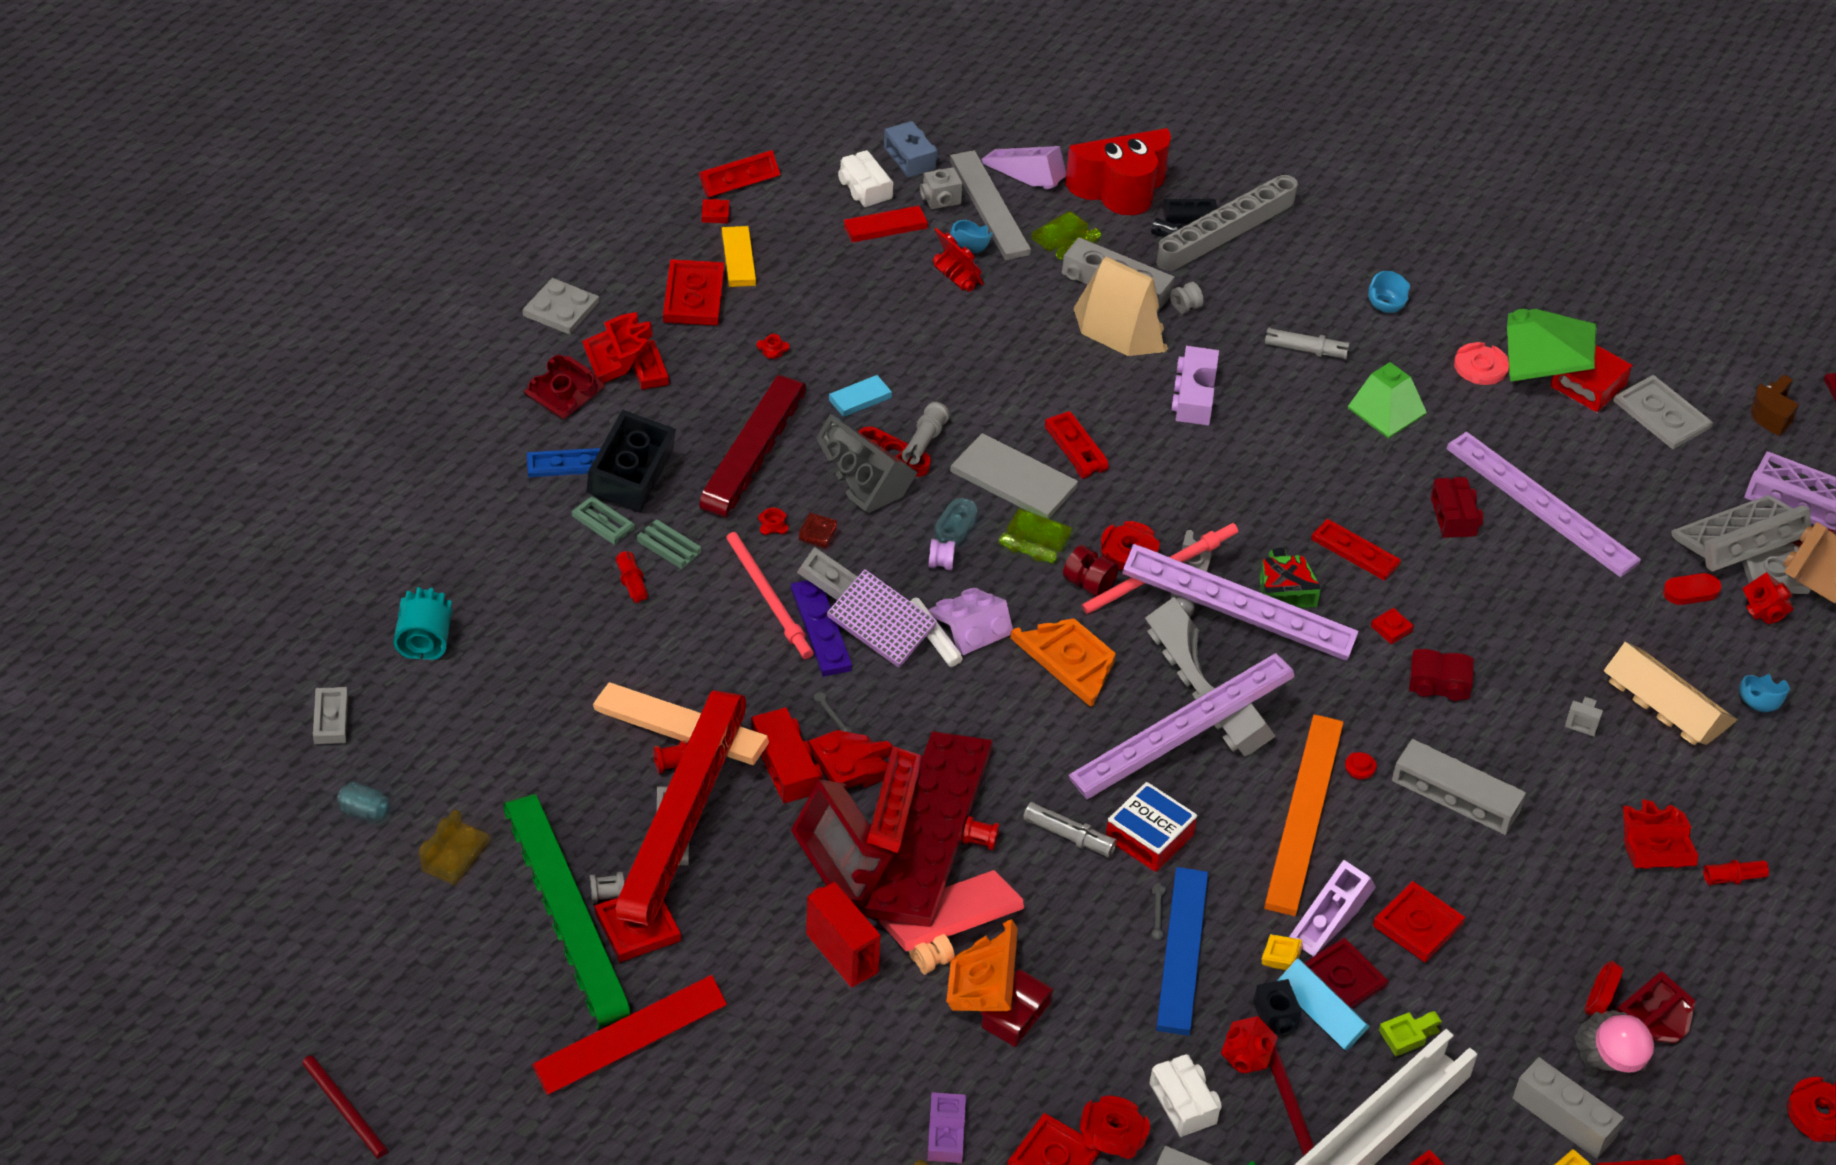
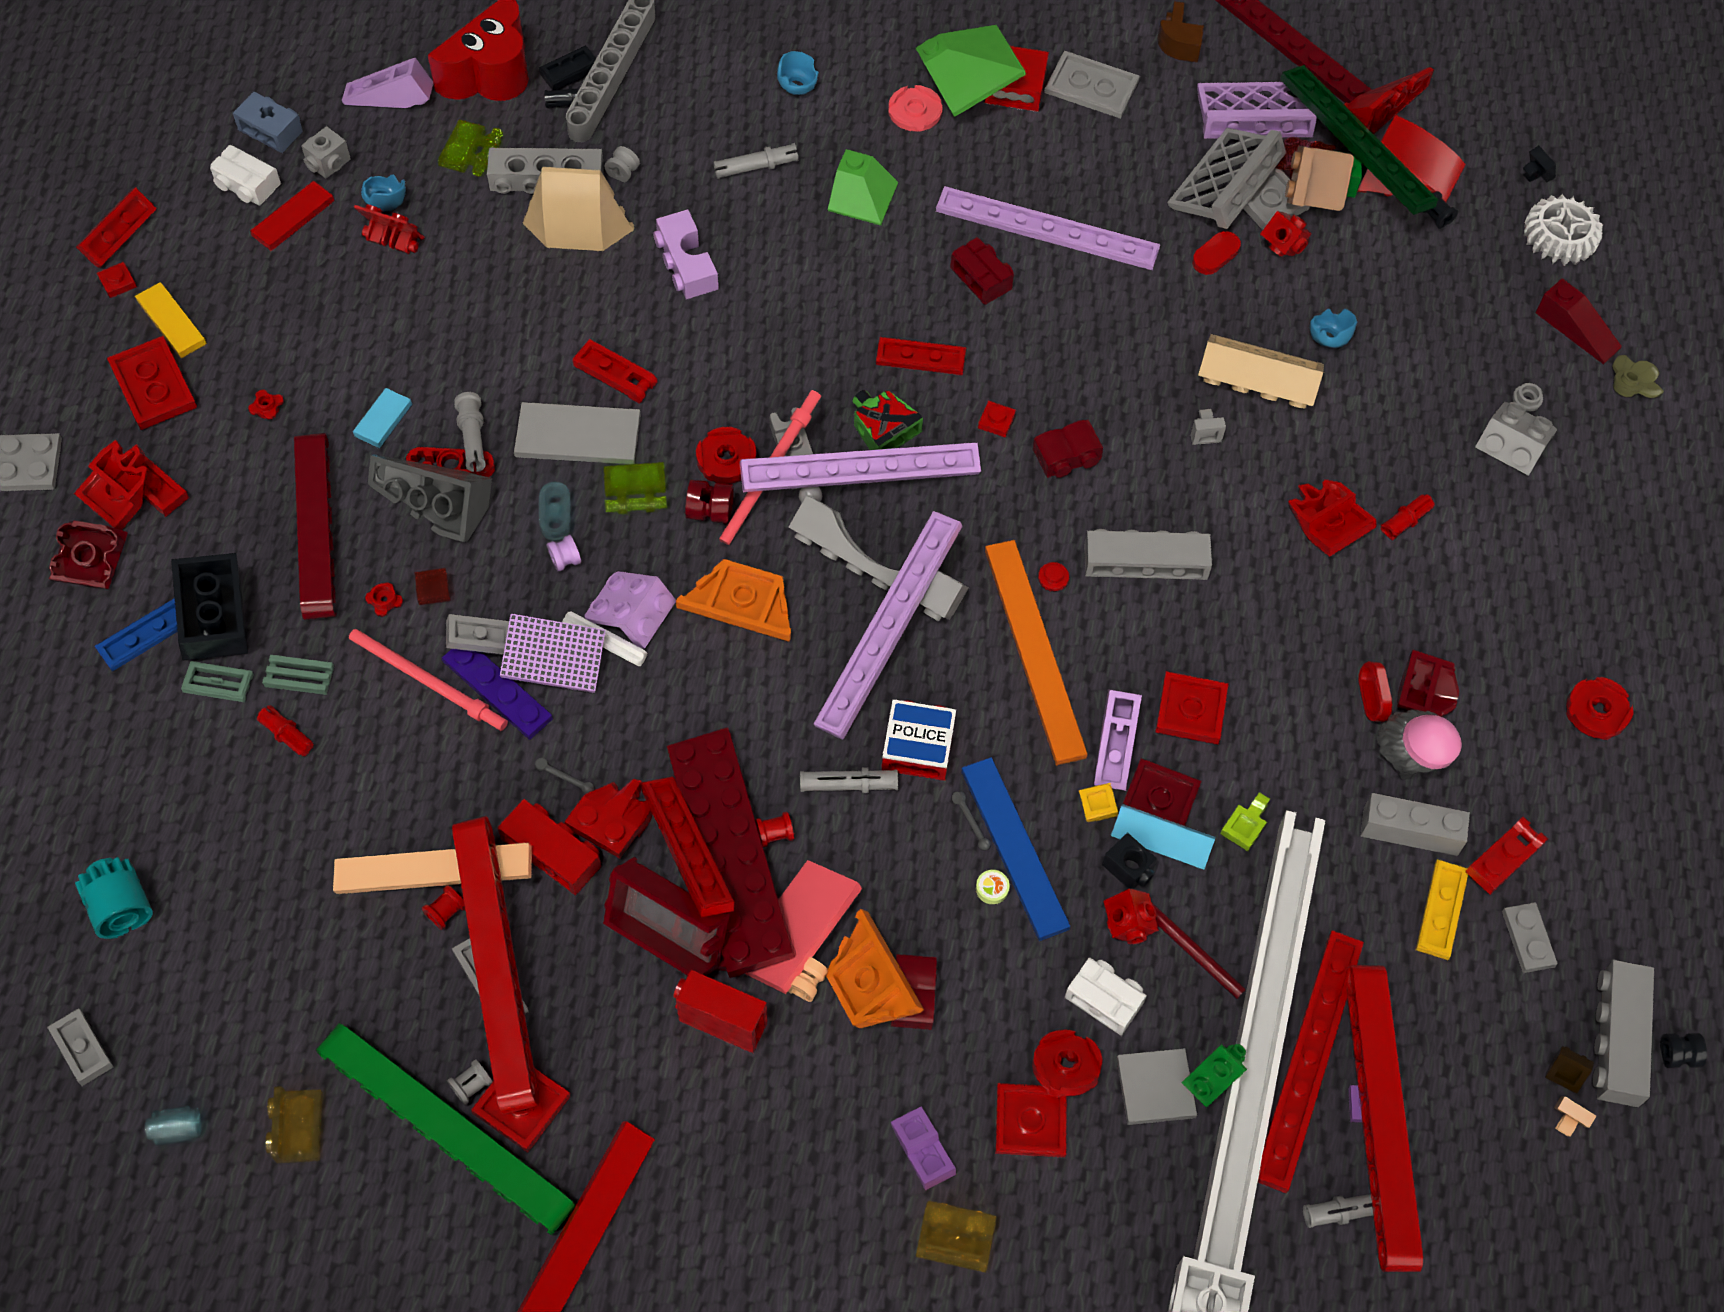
camera: 30 degrees left, 15 degrees up
(990, 205) = (379, 147): light grey tile -> none
(1142, 968) = (992, 887): none -> tile

